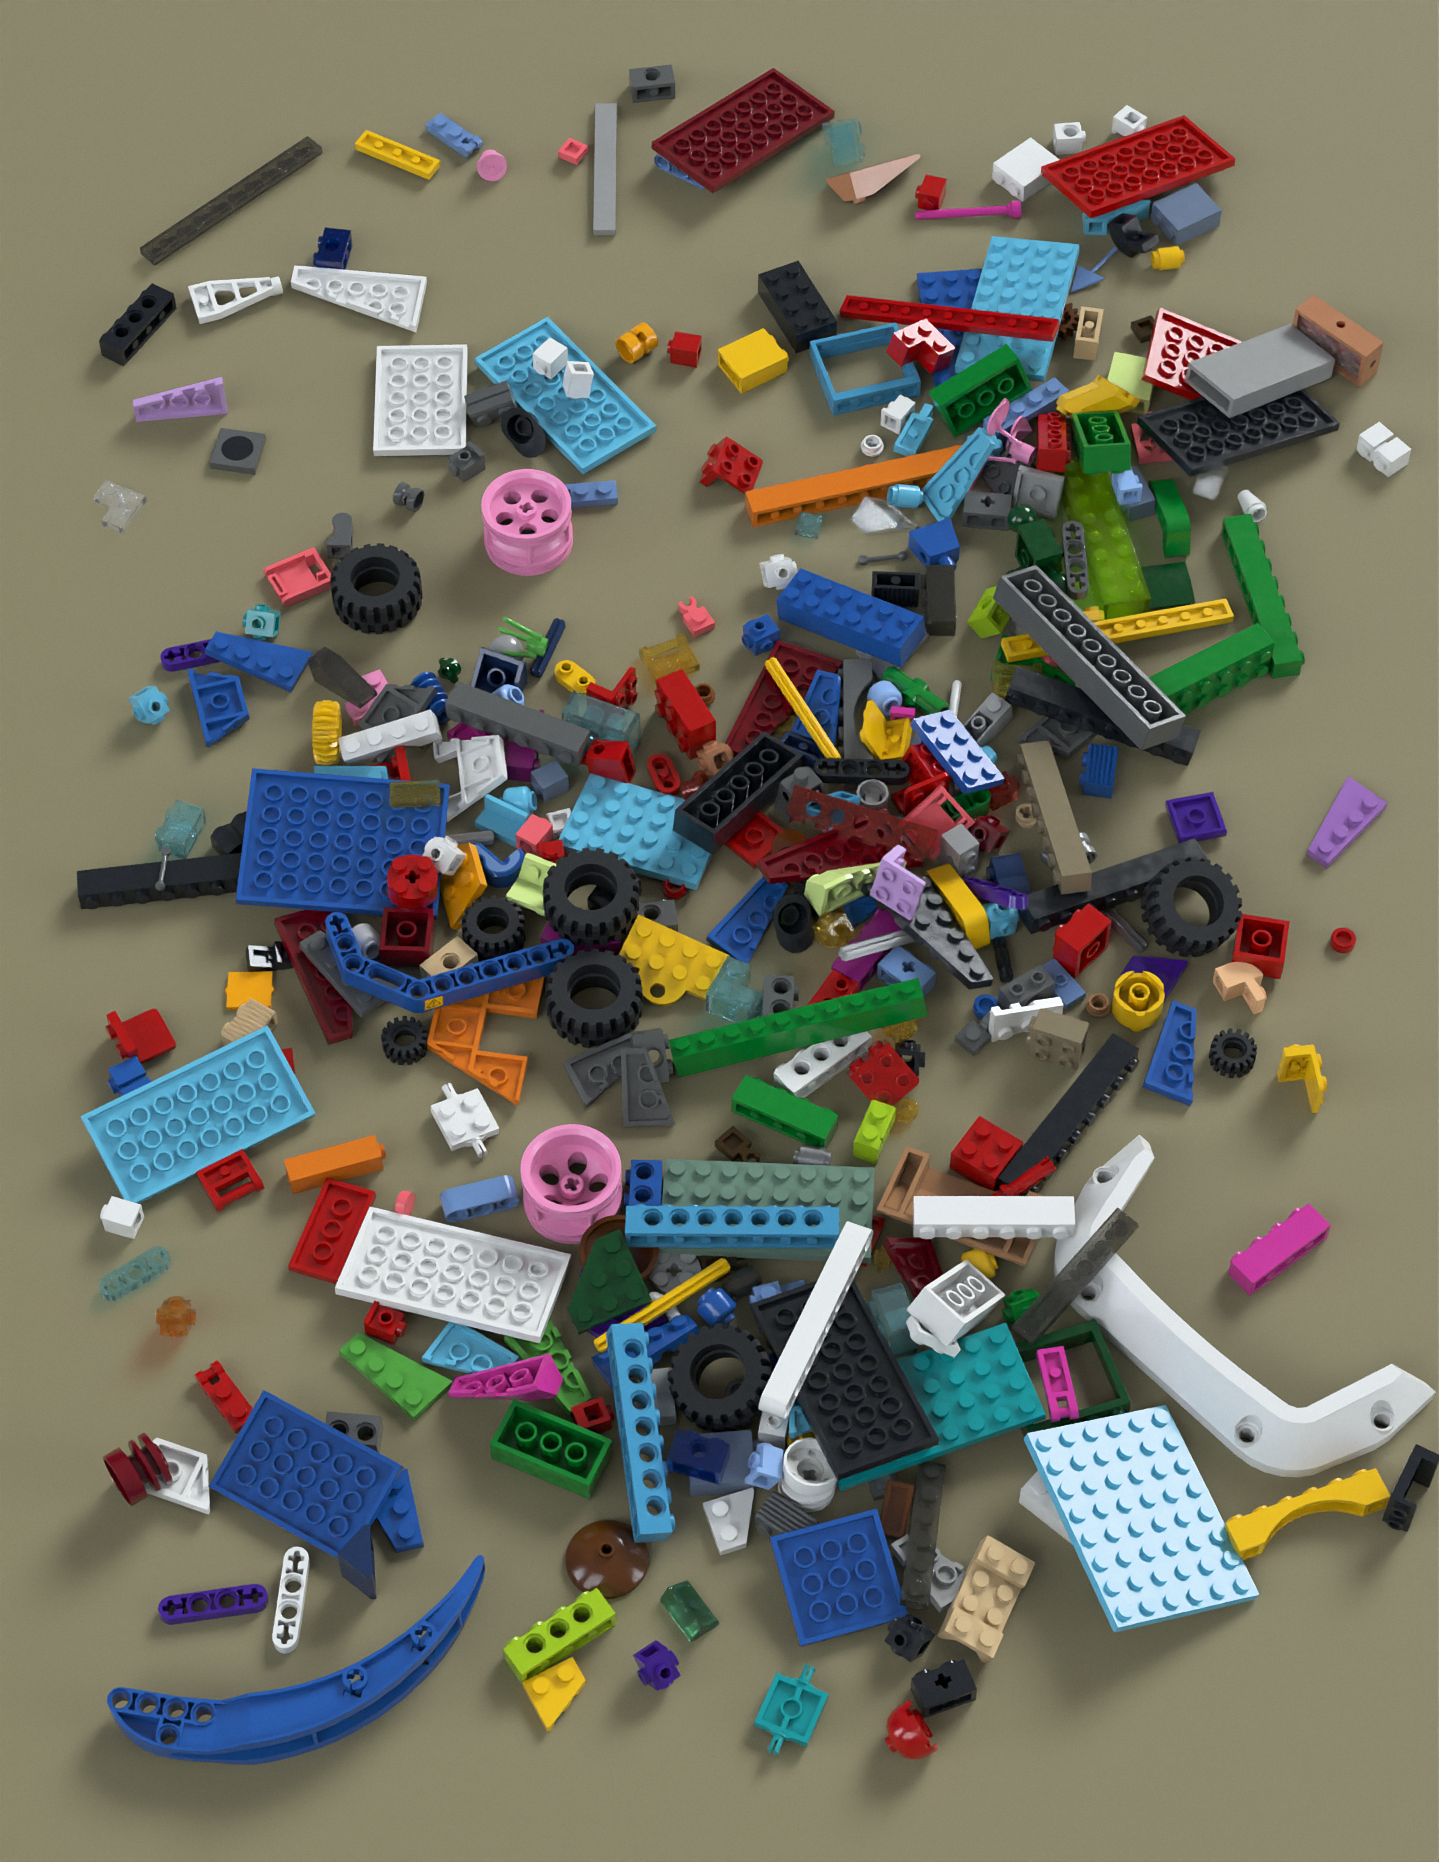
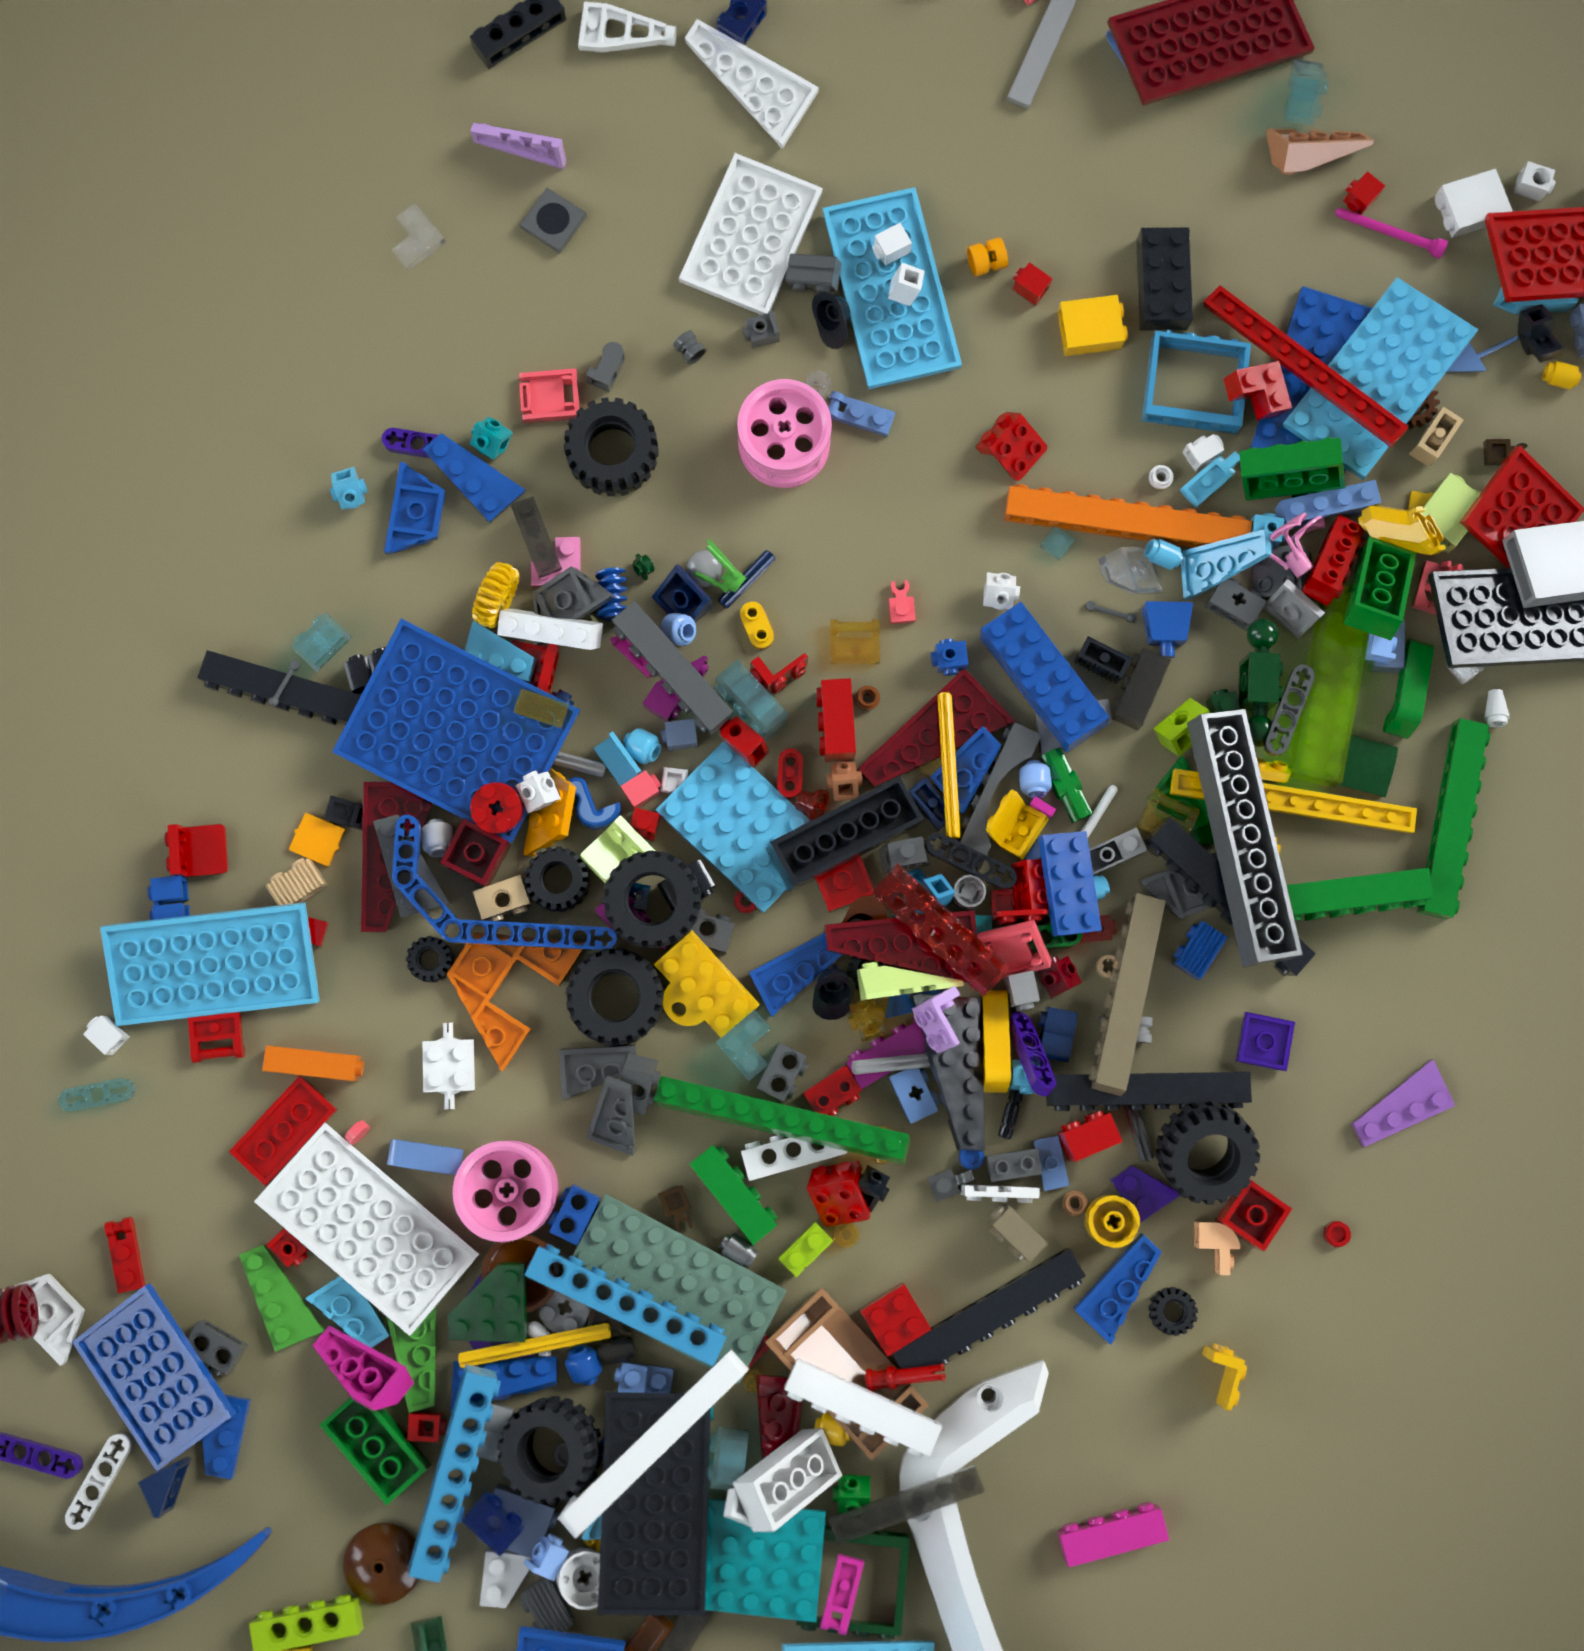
camera: 20 degrees right, 25 degrees up
(168, 1320) = (108, 1162): clear orange brick -> none
(480, 768) = (620, 695): white wing -> none

